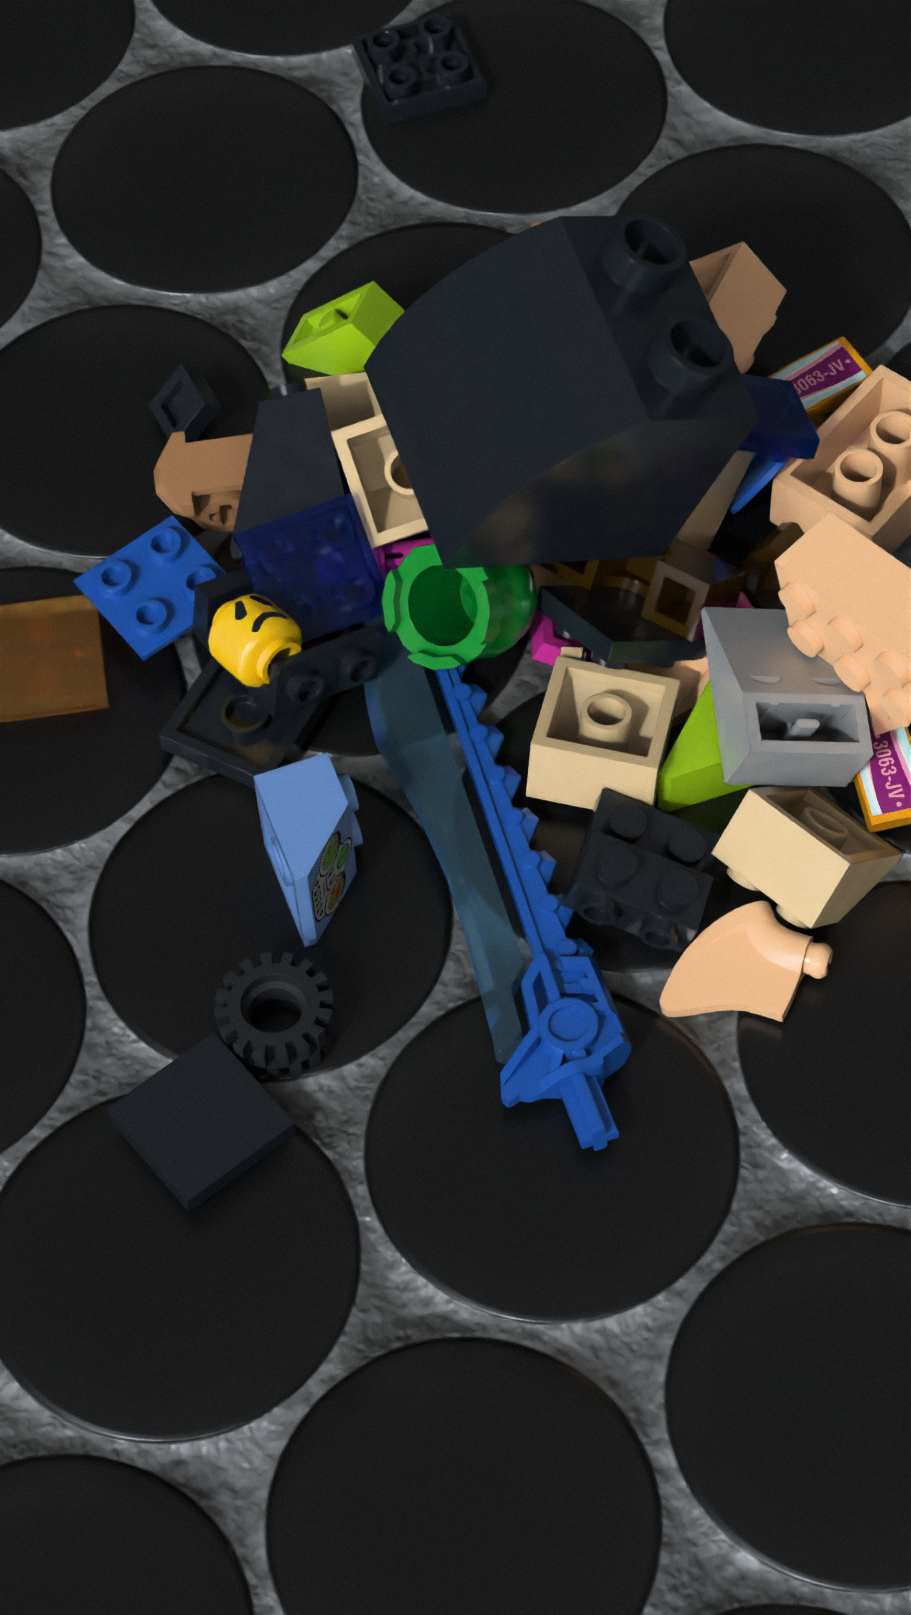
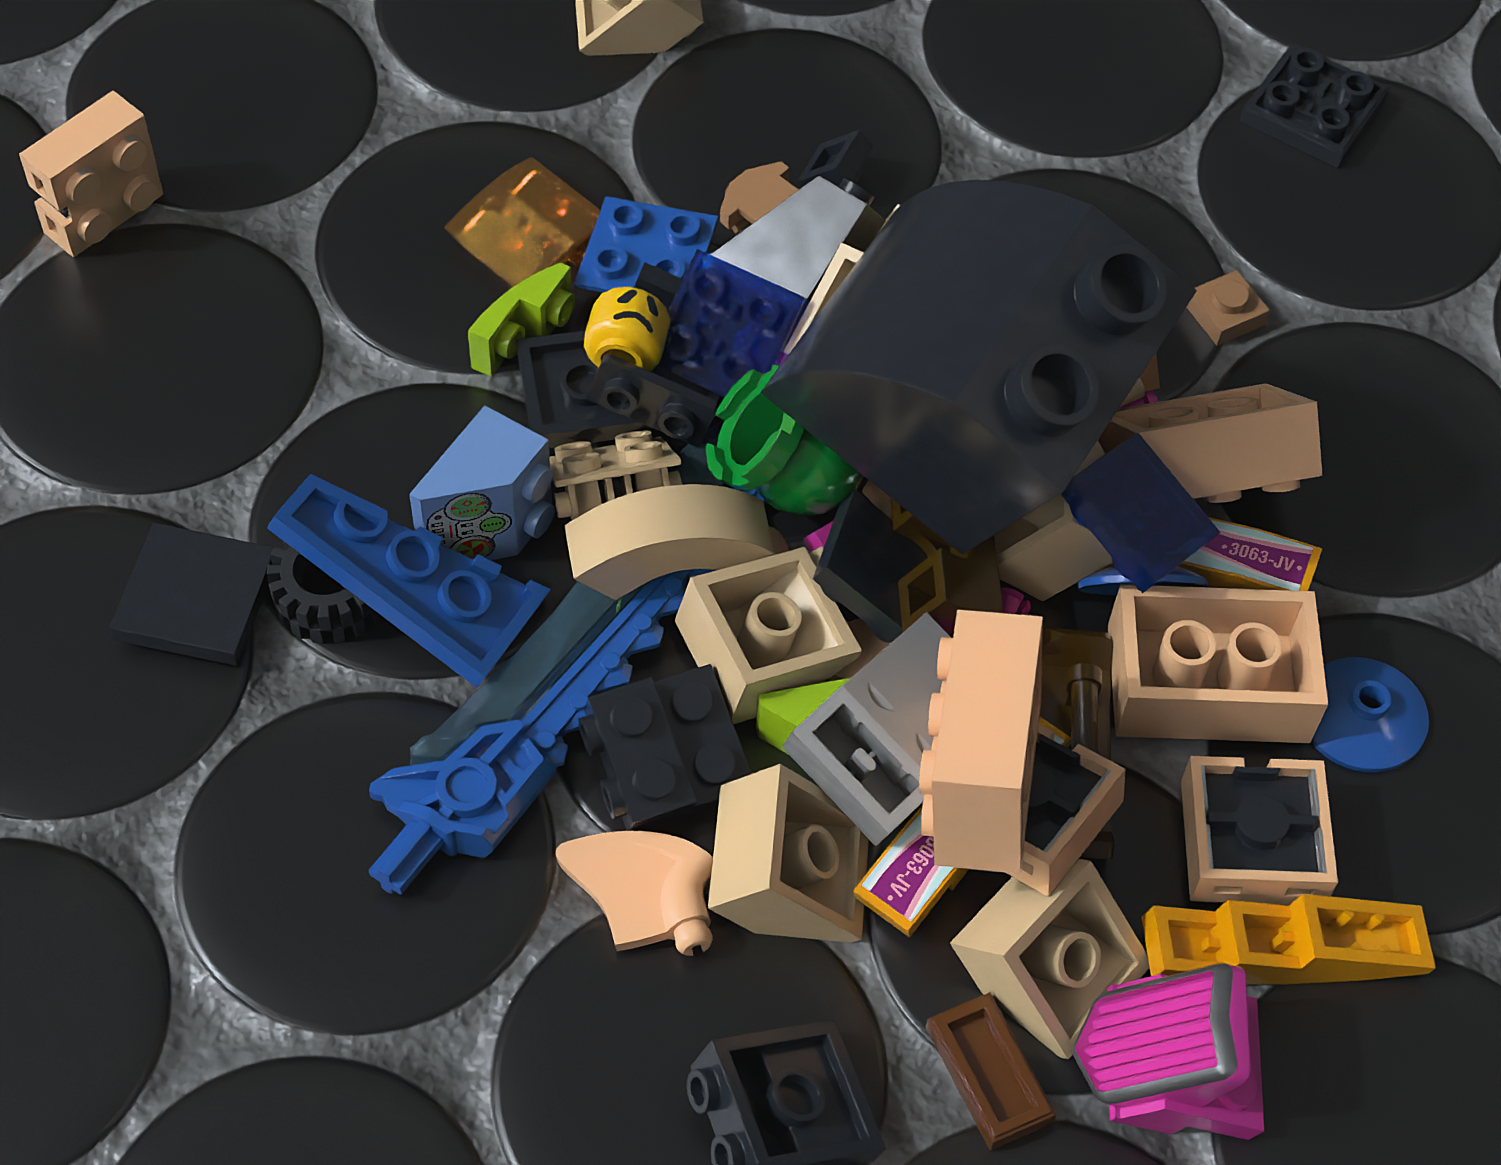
camera: 45 degrees right, 0 degrees up
(139, 717) = (526, 311): none -> lime slope
(361, 941) = (433, 594): none -> blue wing
(366, 738) = (581, 468): none -> tan hinge
(470, 739) = (668, 532): none -> tan arch

